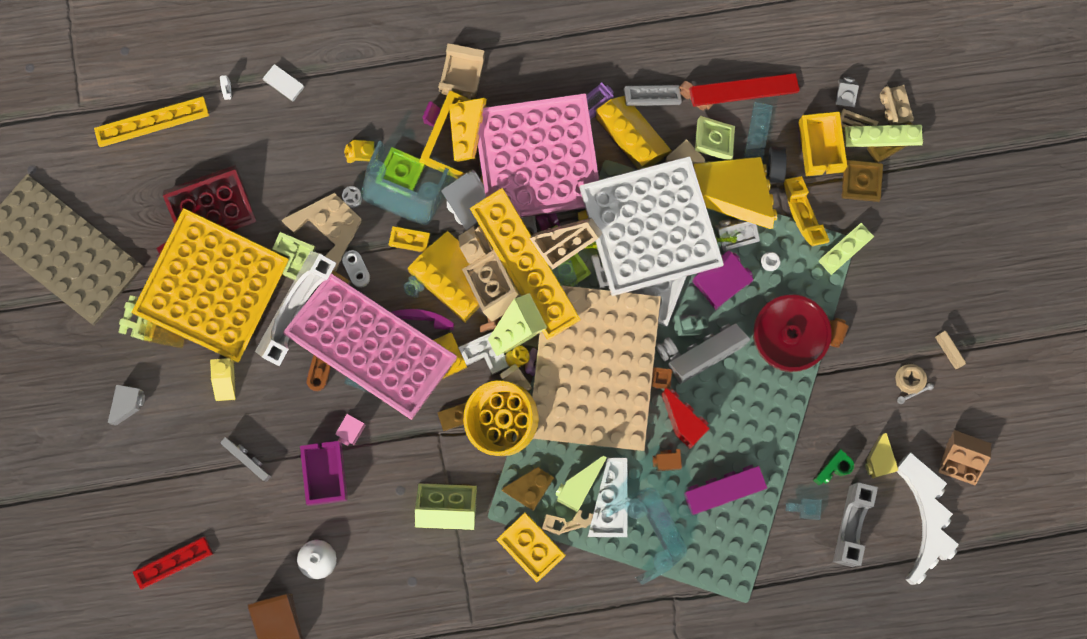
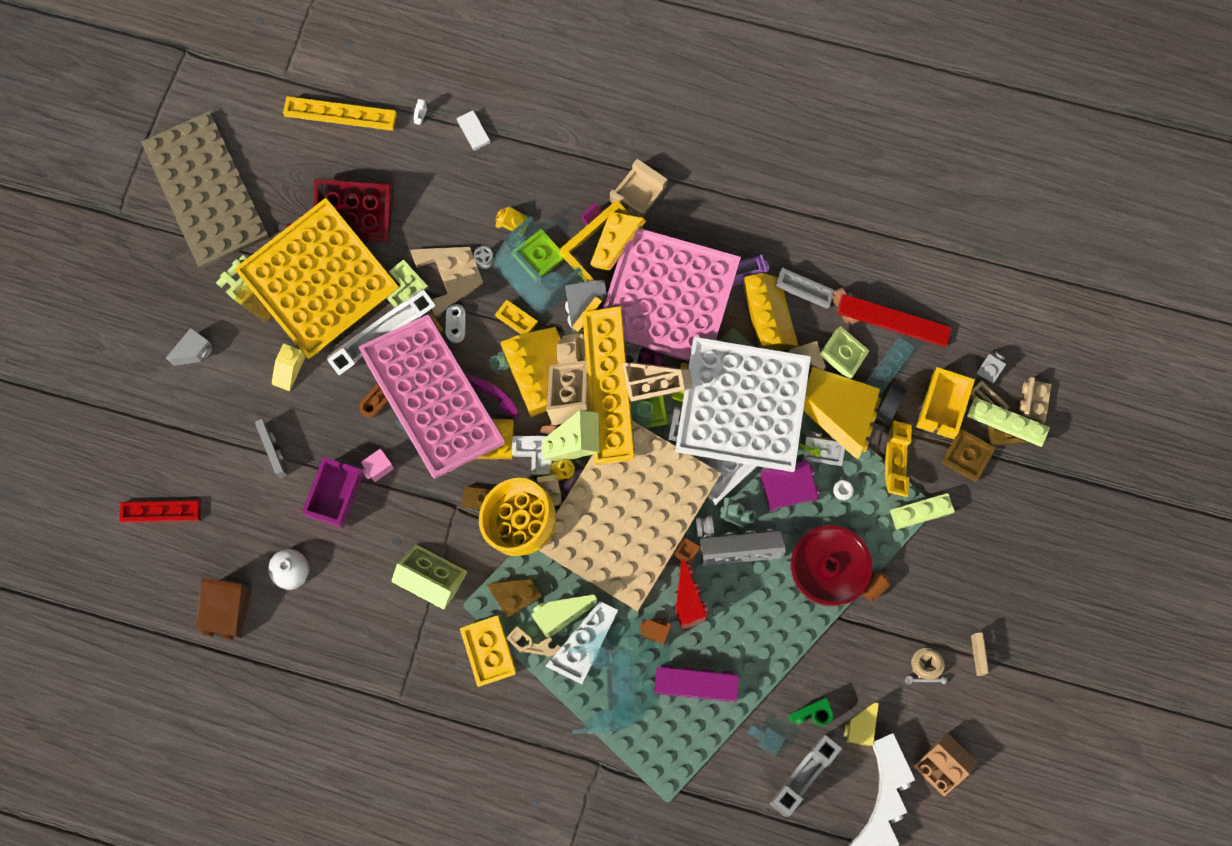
camera: 30 degrees right, 5 degrees down
(474, 199) = (592, 306): none -> yellow tile

